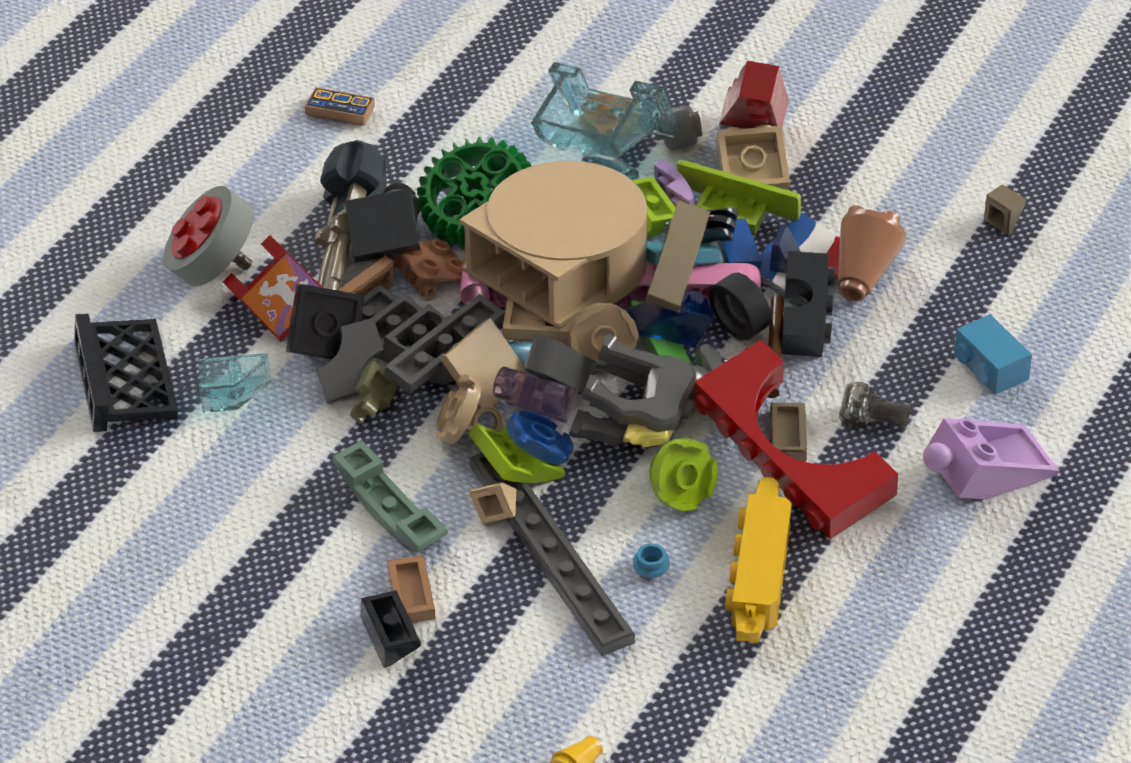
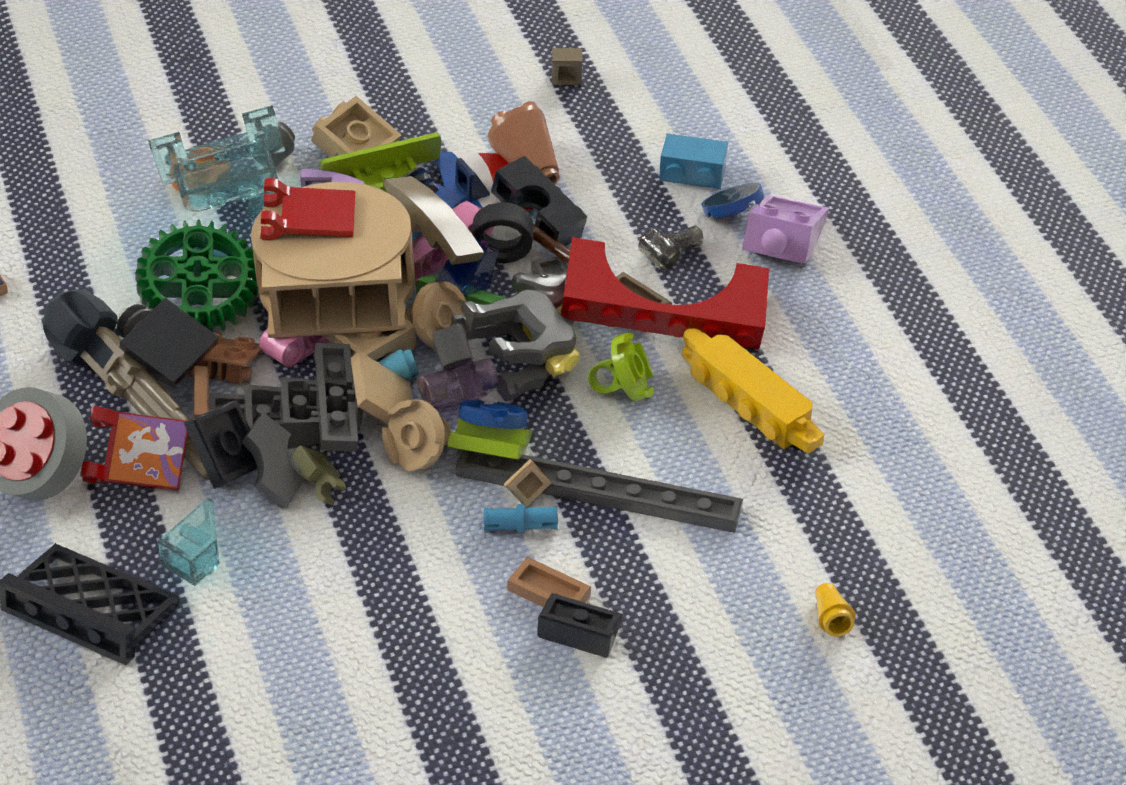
camera: 50 degrees left, 0 degrees up
(384, 500) = (446, 543): sand green slope -> none
(460, 526) = (520, 518): none -> dark azure pin
(566, 185) = (307, 211): none -> red flag
(651, 561) = (680, 443): dark azure plate -> none
(756, 97) = (317, 88): red wedge -> none
(981, 406) = (732, 200): none -> tile

